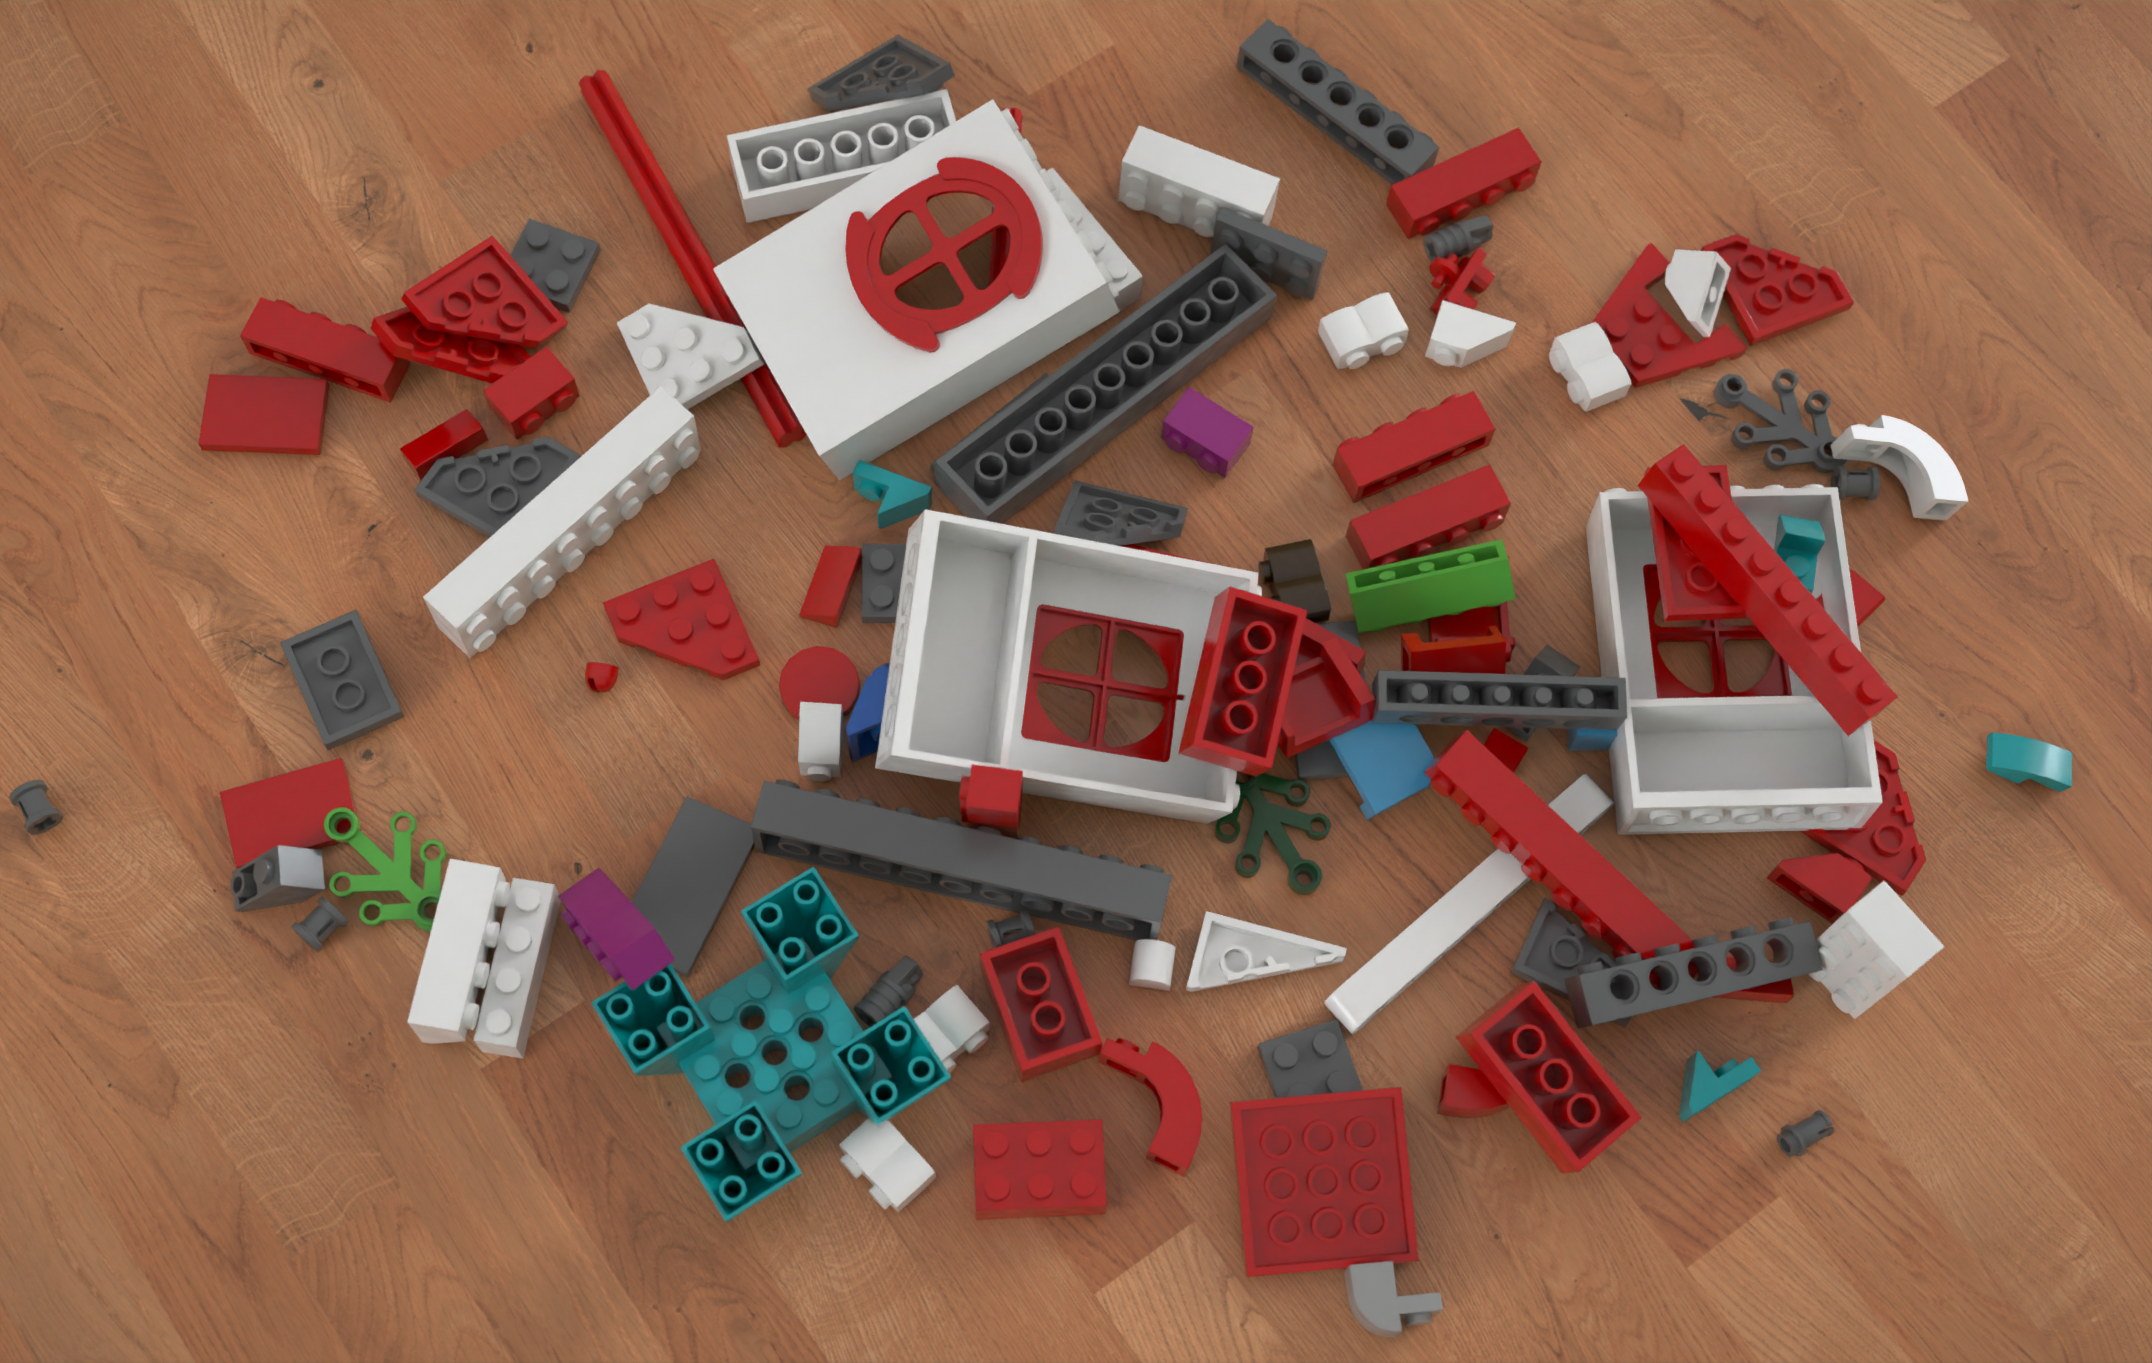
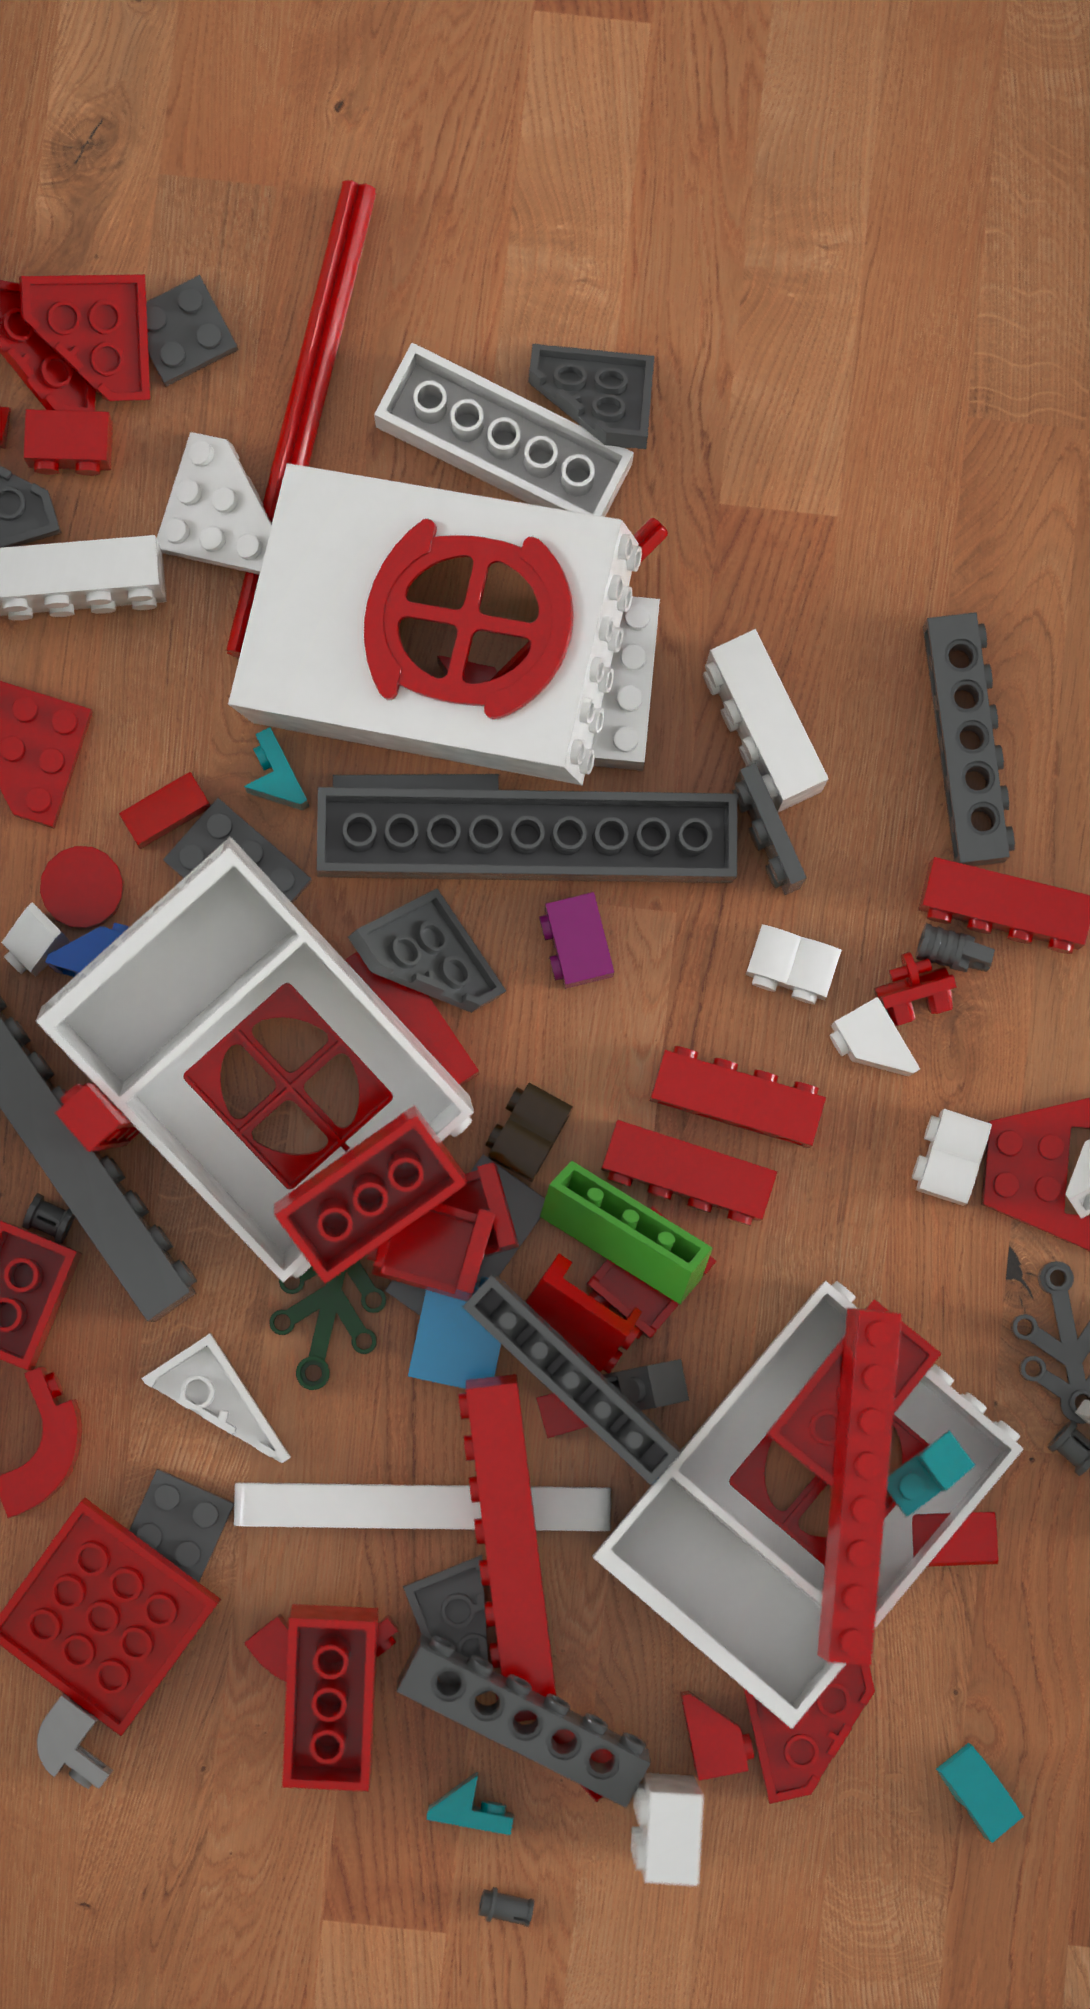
camera: 40 degrees right, 15 degrees up
(1152, 964) = (133, 1338): white brick -> none

